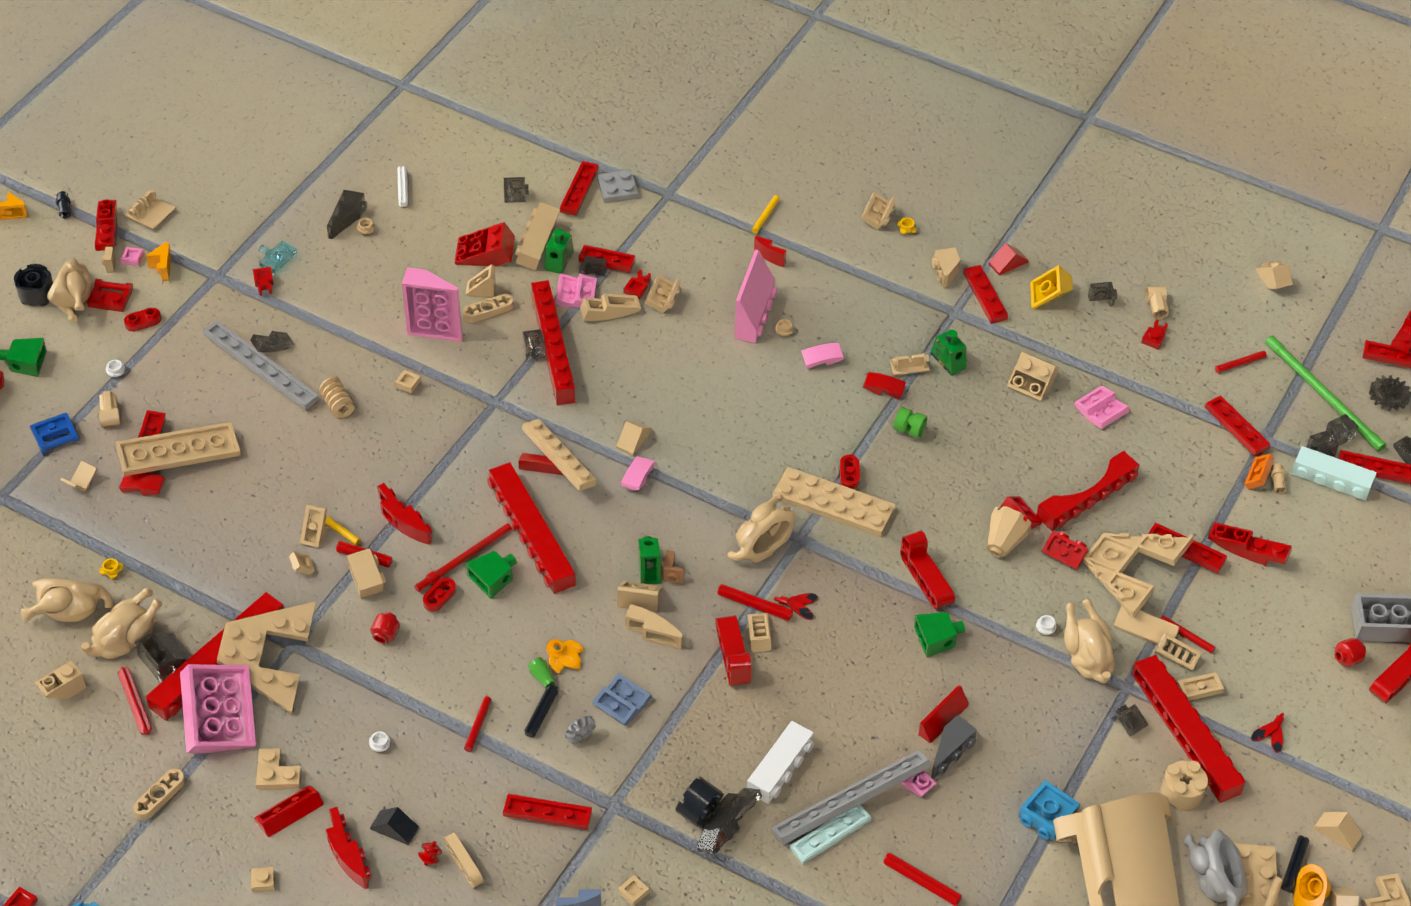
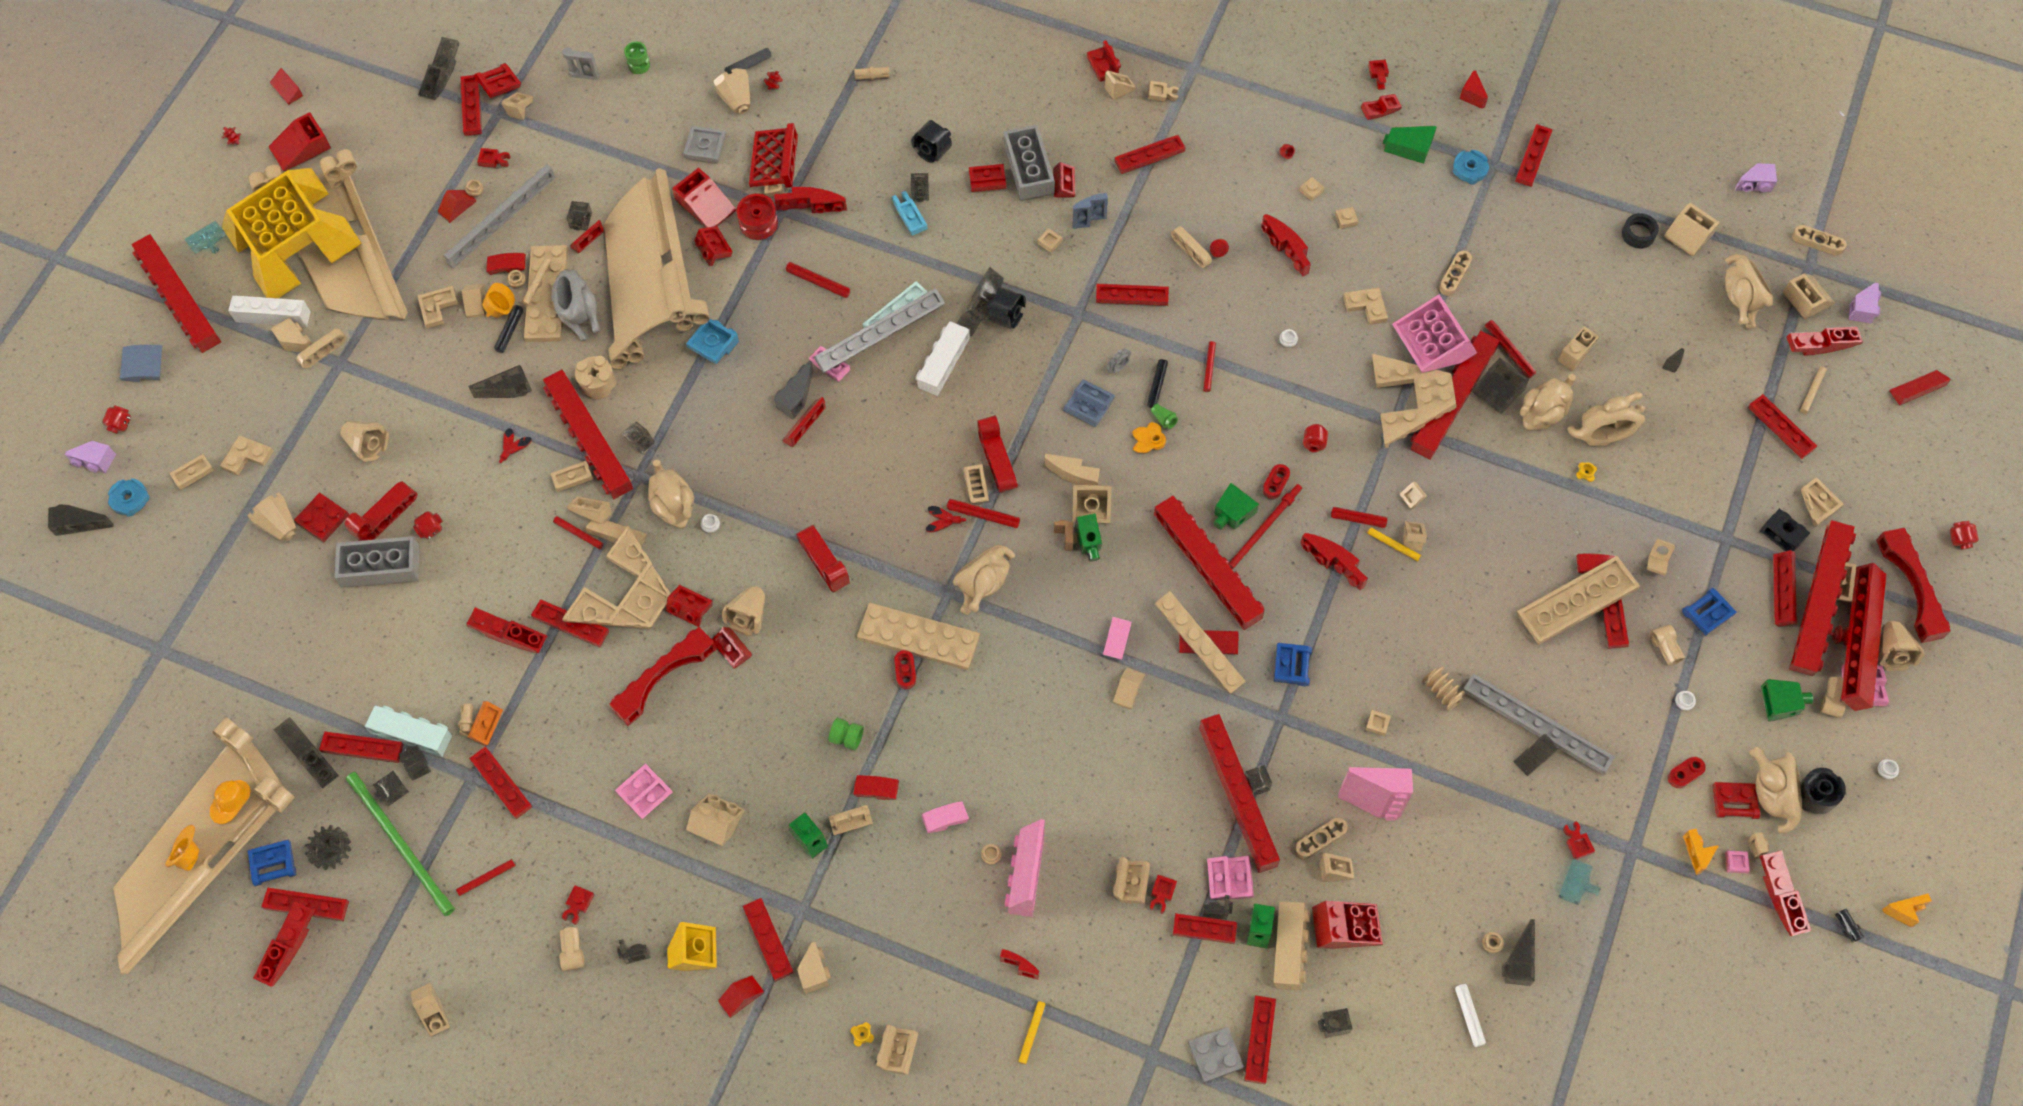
camera: 175 degrees right, 15 degrees up
(149, 210) = (1747, 931): tan hinge -> none
(289, 811) = (1345, 274): red slope -> none
(365, 573) = (1350, 487): tan brick -> none
(395, 825) = (1255, 269): black slope -> none
(478, 437) = (1286, 663): none -> blue plate
(609, 307) = (1186, 855): tan slope -> none
(937, 632) = (811, 499): green torso -> none
(1288, 792) = (506, 384): none -> clear smoke slope
(1339, 828) = (468, 361): tan slope -> none

